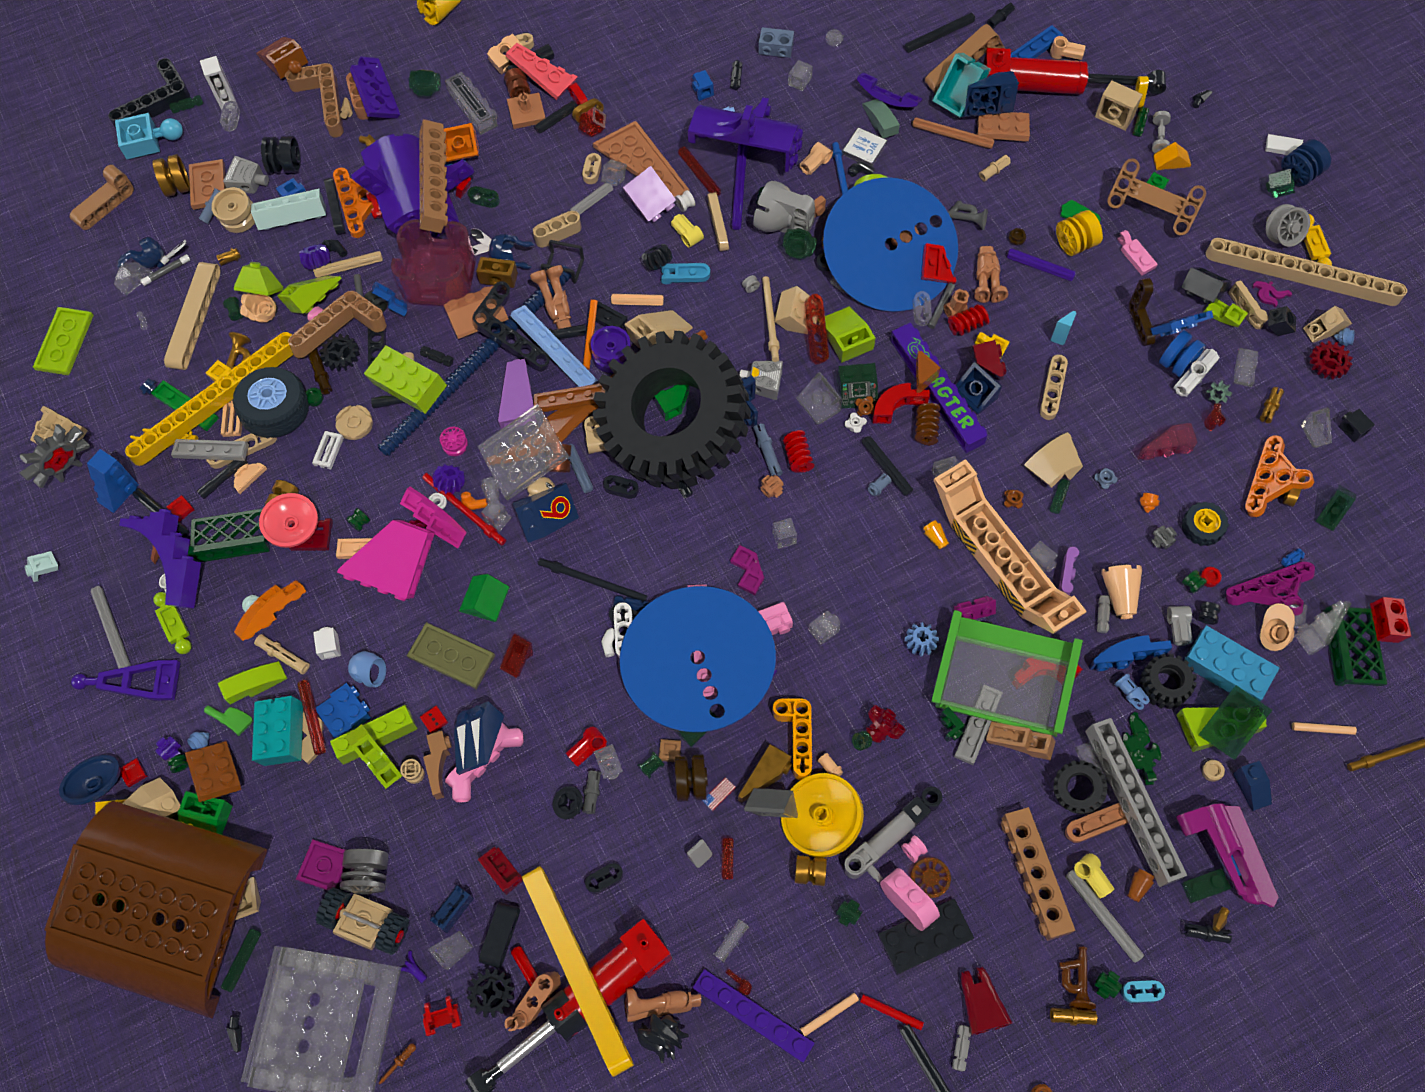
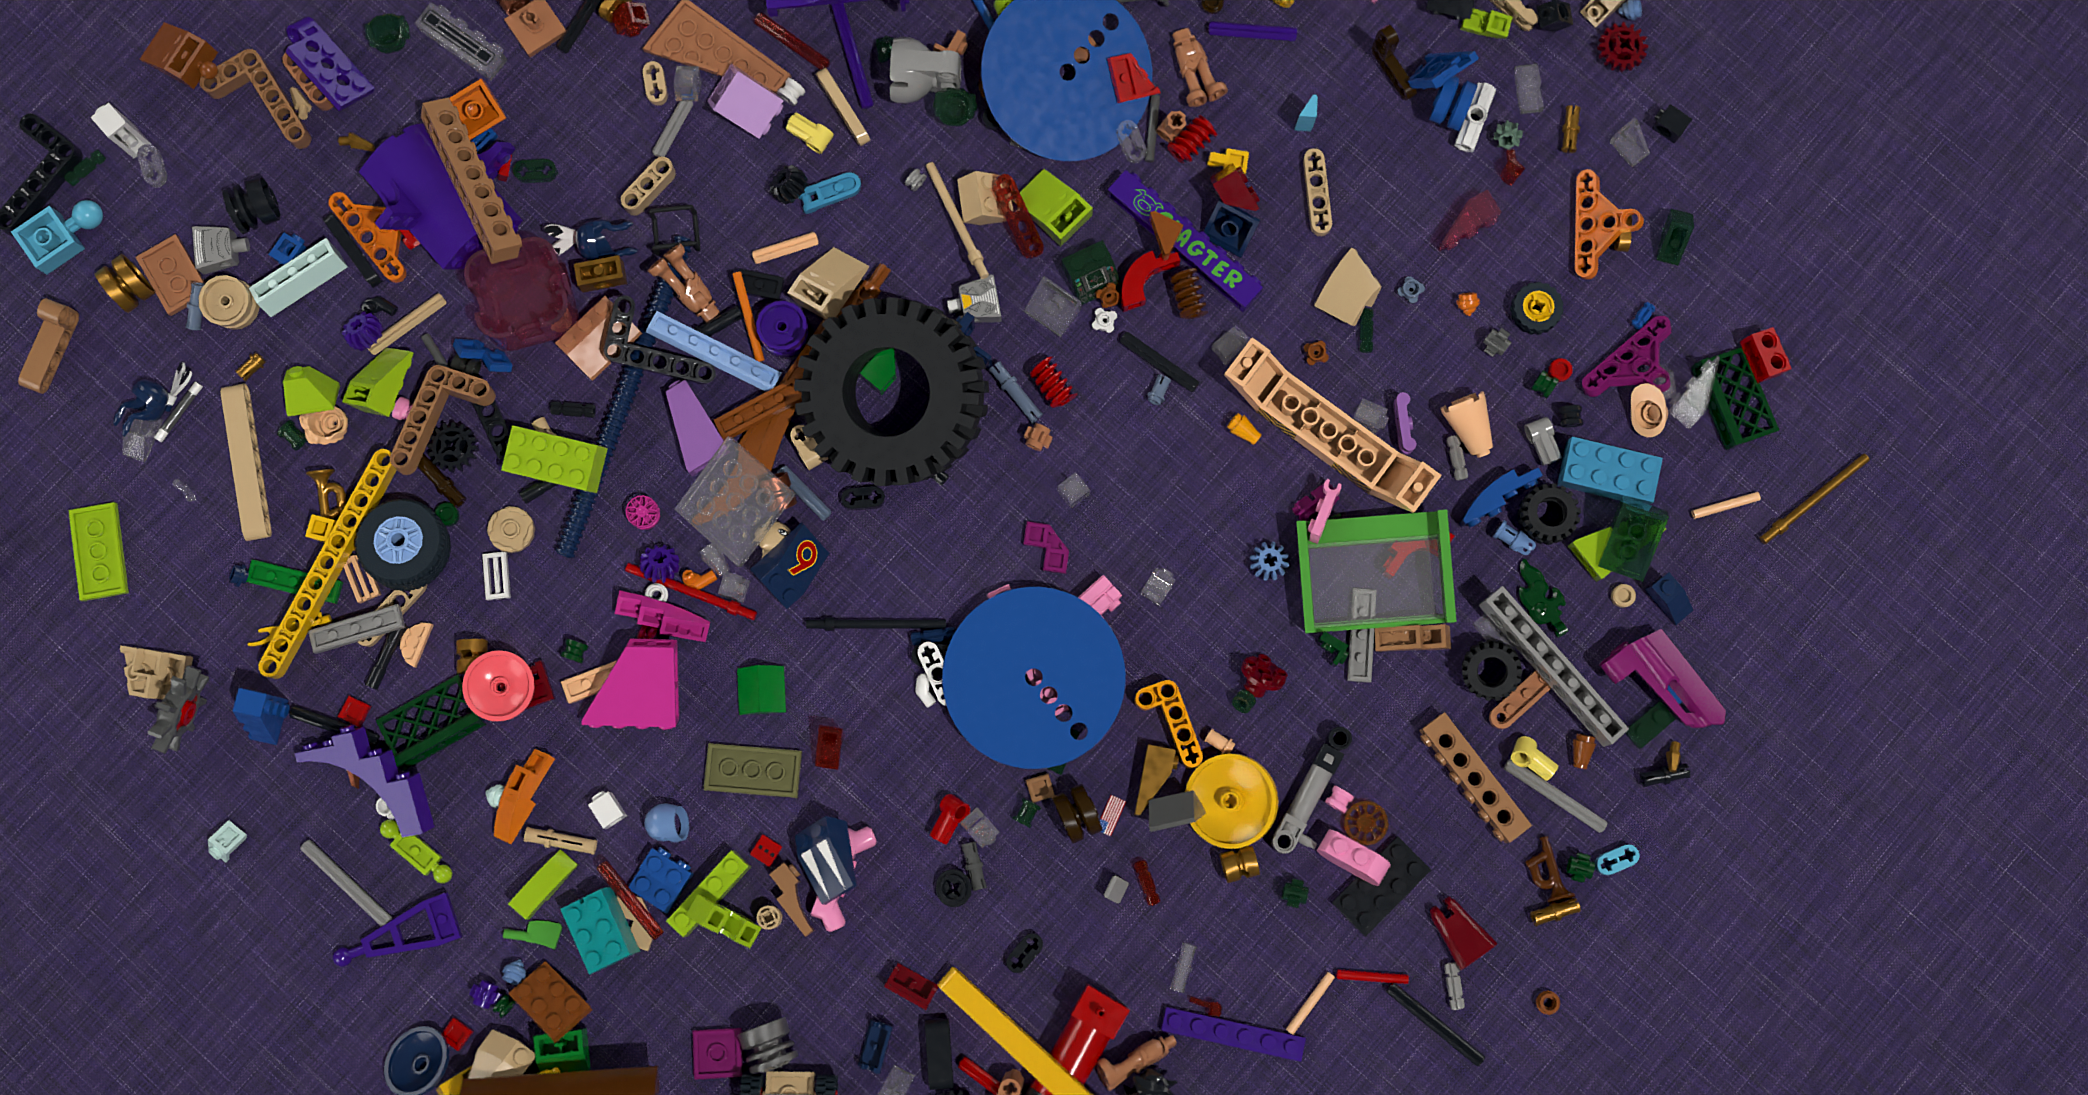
camera: 25 degrees left, 15 degrees up
(979, 611) = (1324, 509): none -> bright pink plate

